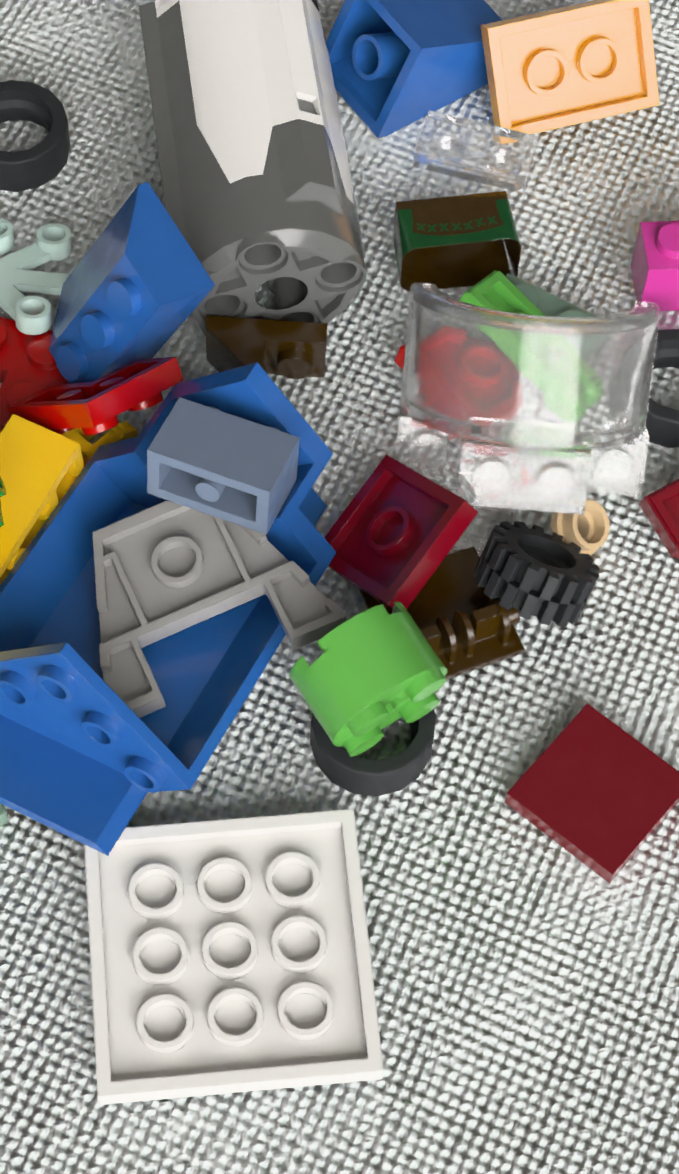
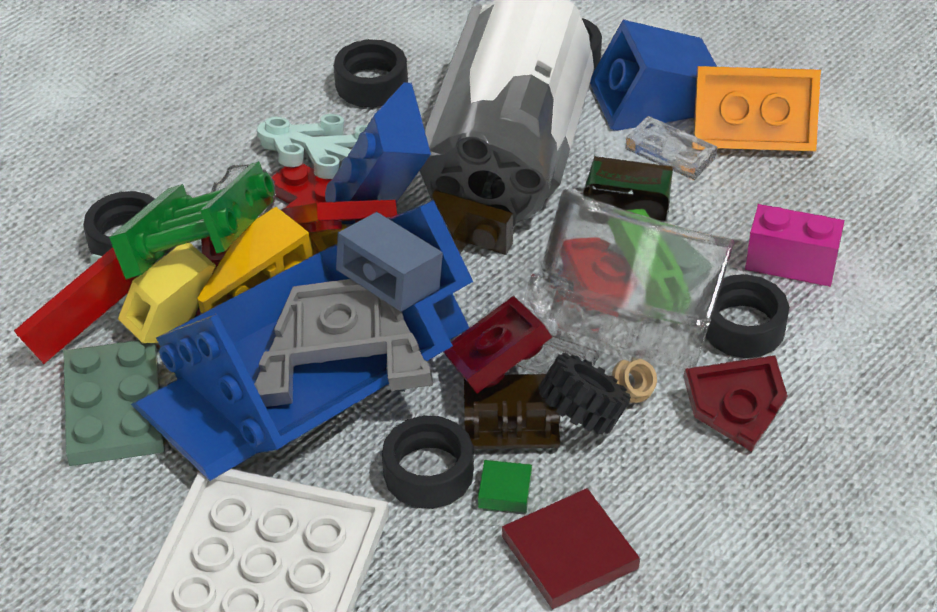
camera: 25 degrees right, 15 degrees down
(370, 677) = (426, 410): bright green brick -> none
(481, 731) = (505, 486): none -> green tile

